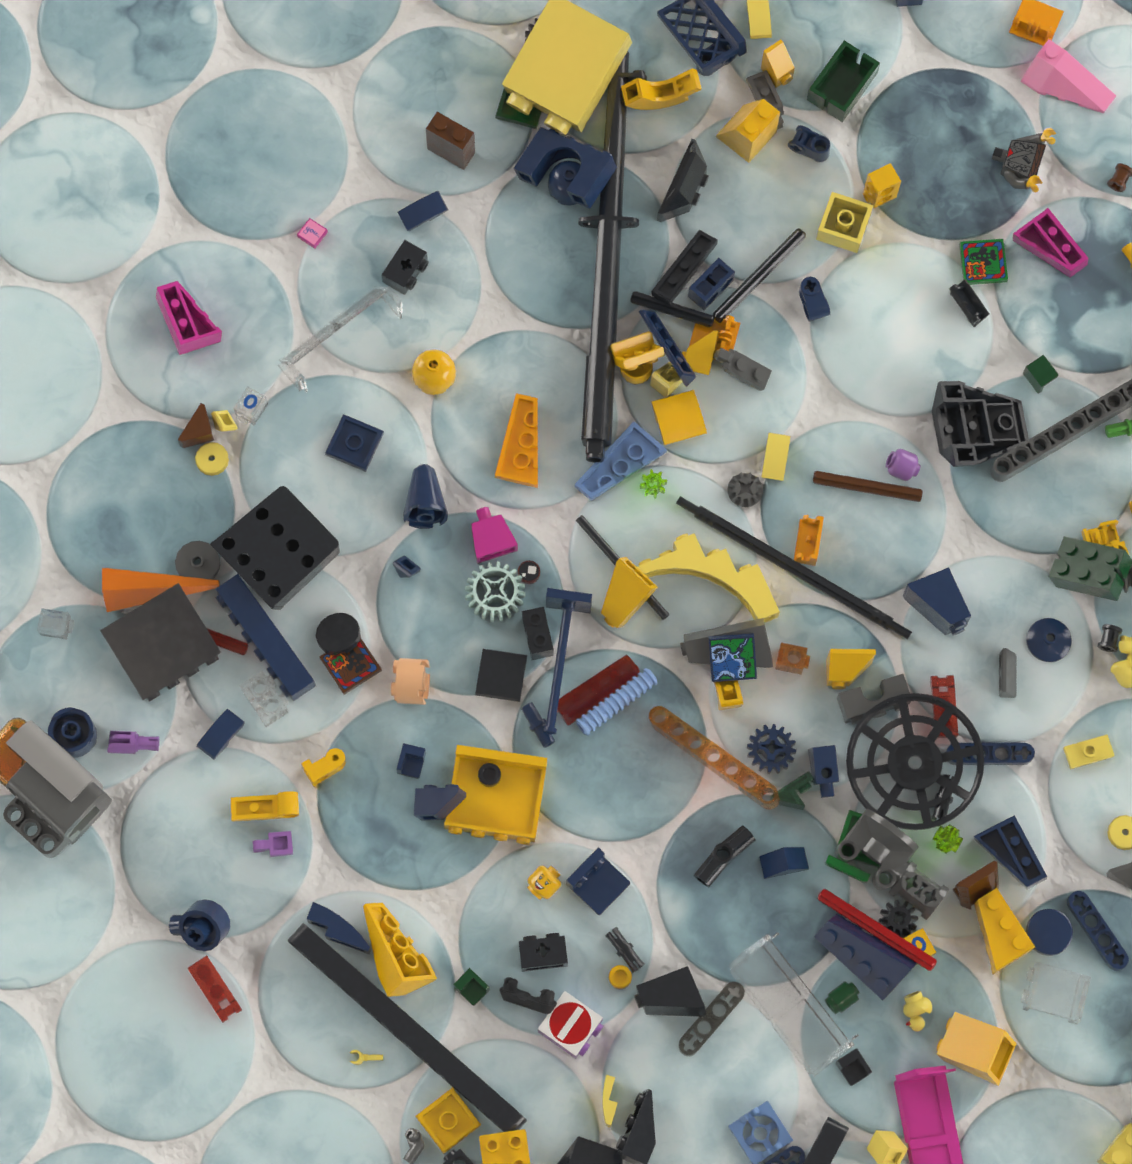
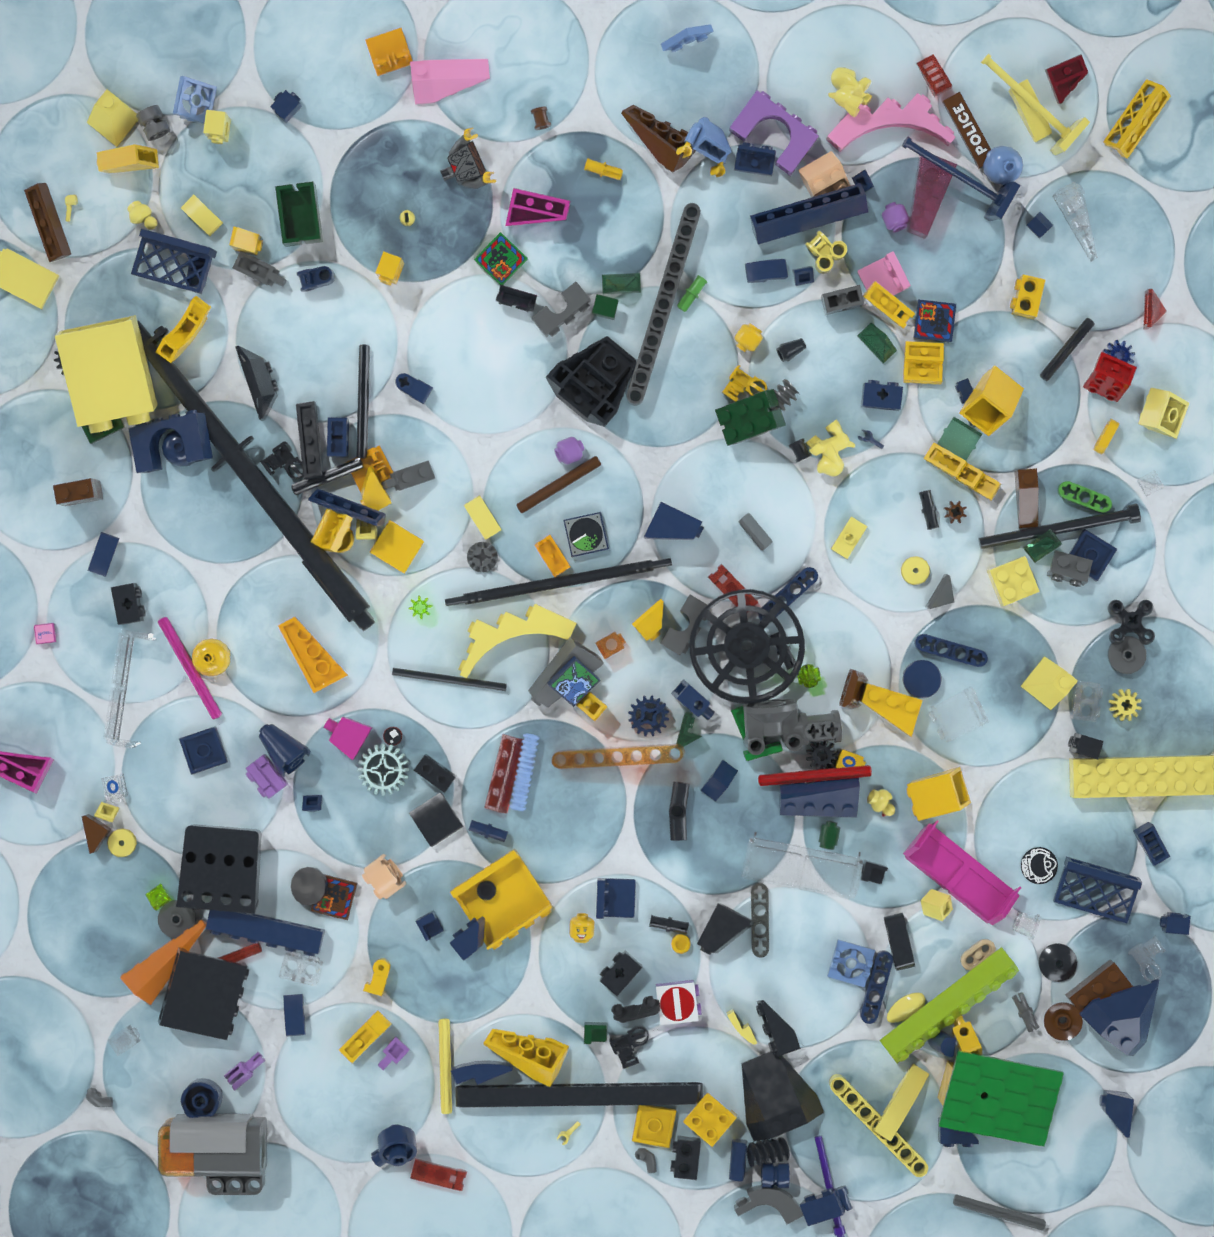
camera: 40 degrees left, 15 degrees up
(200, 529) = (158, 897): none -> clear neon green plate
(309, 897) = (445, 1066): none -> light yellow axle
(388, 509) = (266, 776): none -> medium lavender brick
(407, 365) = (189, 668): none -> dark pink axle
(488, 1021) = (624, 1043): none -> black piece
(568, 602) = (438, 738): dark blue tile -> none
(622, 459) = (386, 606): medium blue wing -> none
(626, 593) = (468, 697): yellow slope -> none
(647, 263) = (280, 458): none -> black piece
(750, 128) = (266, 304): yellow slope -> none
(844, 222) = (387, 315): light yellow brick -> none
(854, 548) = (586, 534): none -> tile
(936, 164) = (411, 218): none -> light yellow hinge
(982, 347) = (550, 322): none -> dark grey arch
(1012, 851) = (857, 648): dark blue wedge -> none
(1044, 649) = (754, 491): dark blue dish -> none
(1071, 369) = (621, 283): none -> clear green slope

